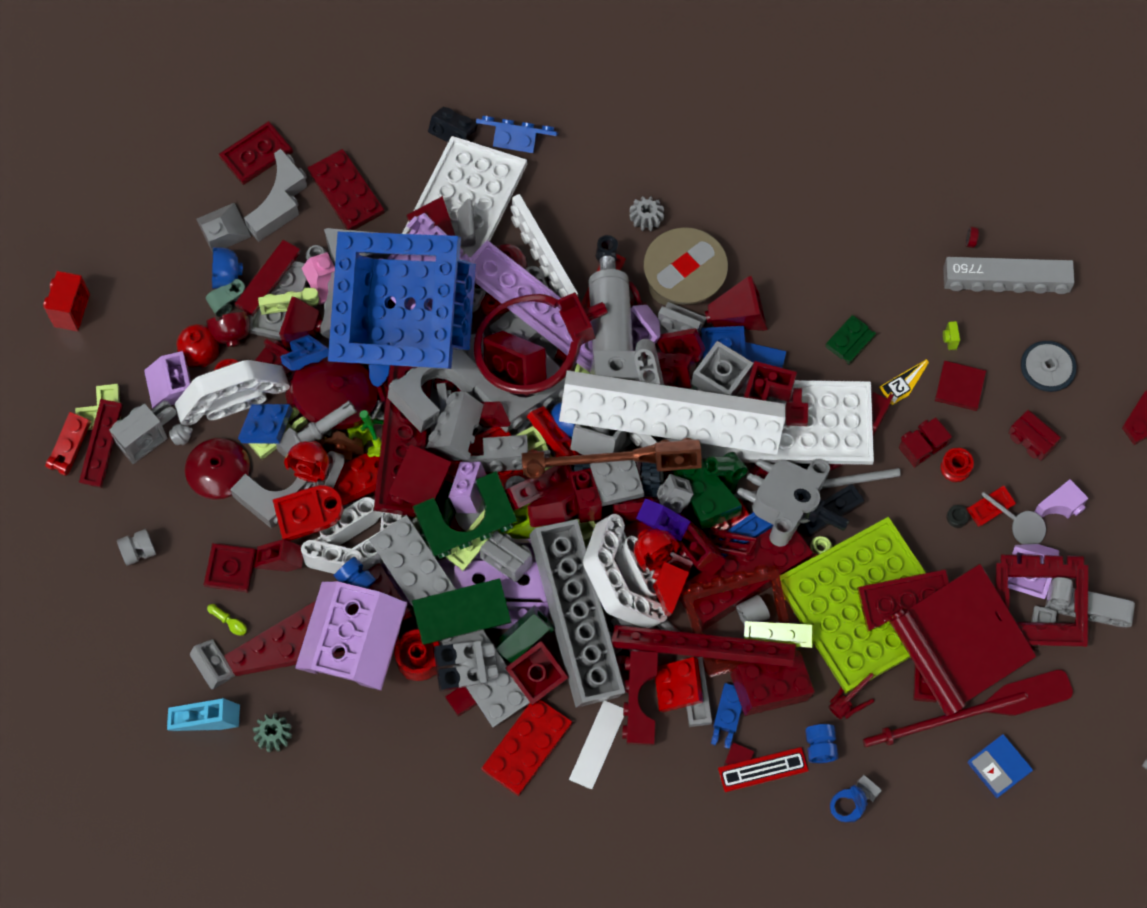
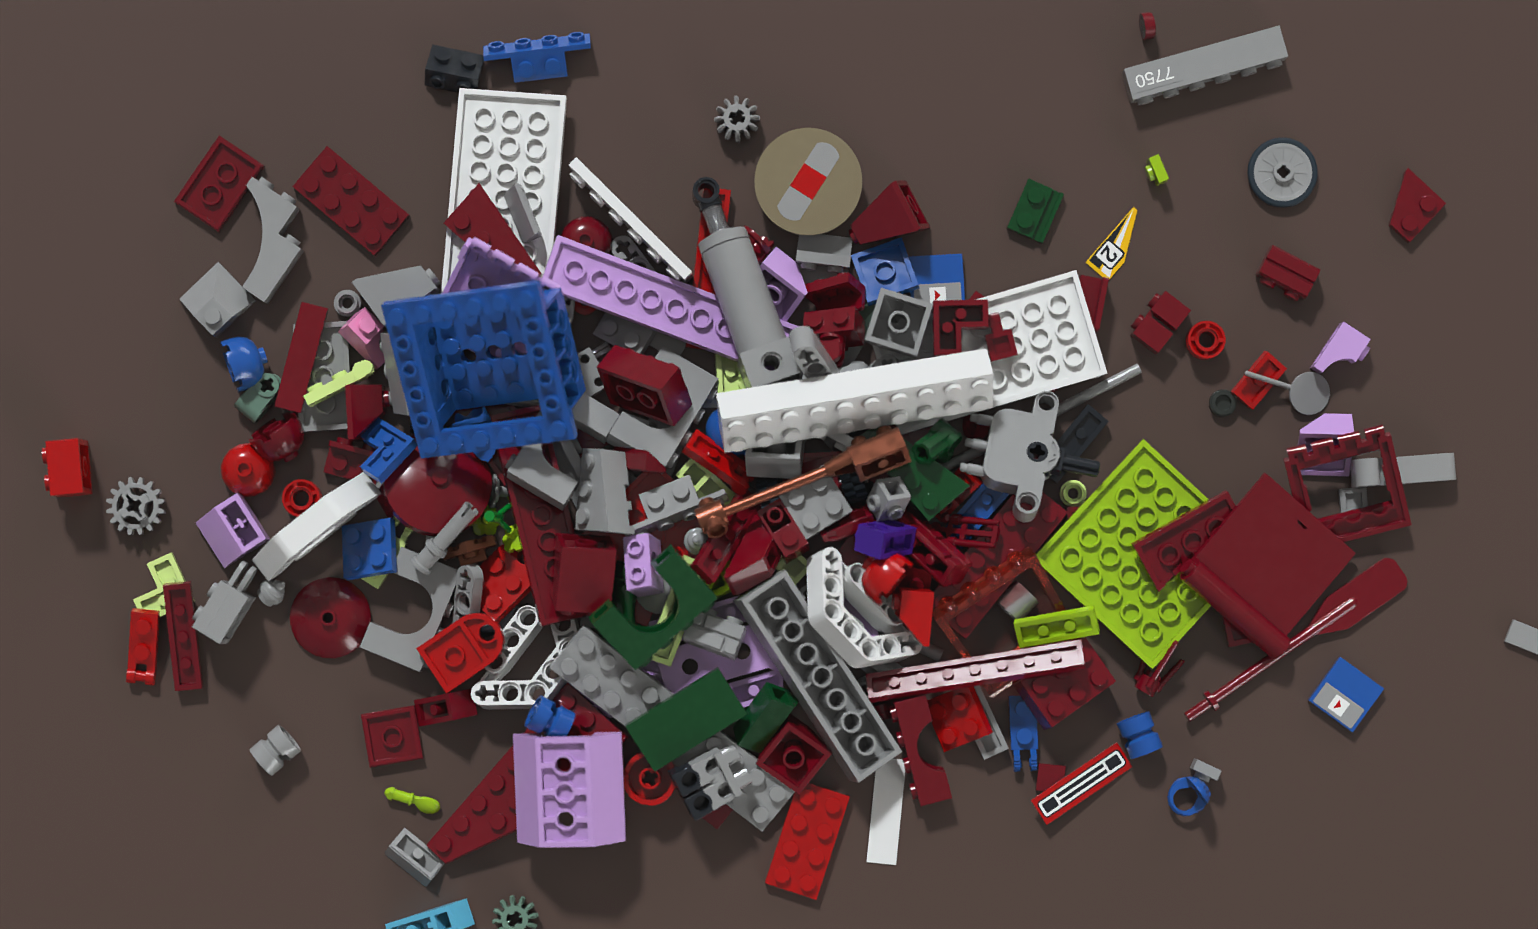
camera: 20 degrees left, 20 degrees up
(115, 345) = (146, 499): none -> light grey gear
(308, 461) = (442, 588): red cylinder -> none
(577, 323) = (708, 321): dark red brick -> none
(960, 385) = (1183, 231): dark red tile -> none

